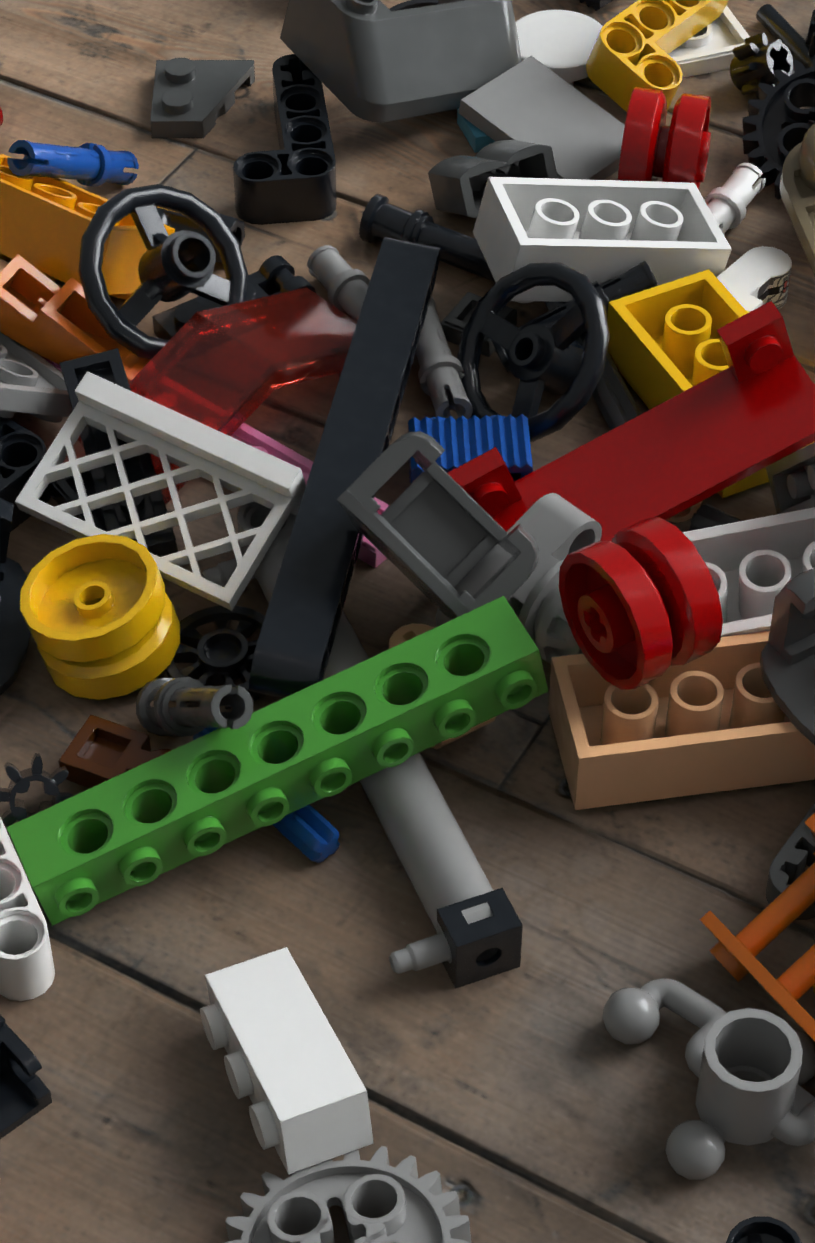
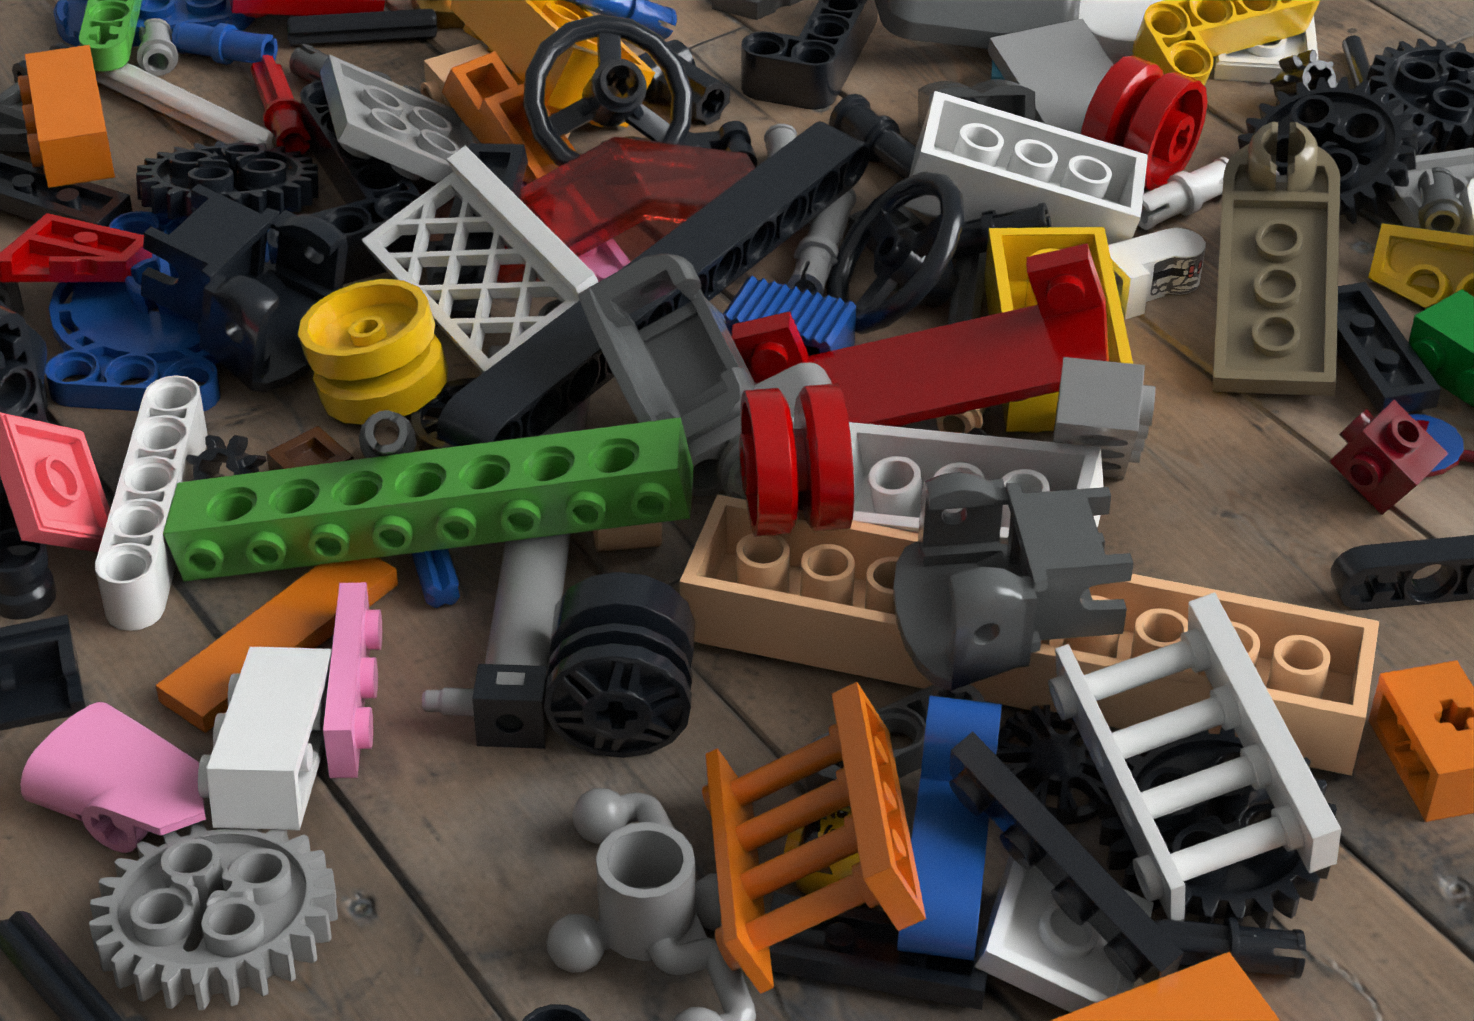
camera: 25 degrees right, 5 degrees down
(158, 1160) = (114, 778): none -> bright pink panel
(194, 941) = (294, 618): none -> orange tile
(284, 922) = (351, 680): none -> bright pink plate
(570, 861) = (620, 665): none -> black wheel

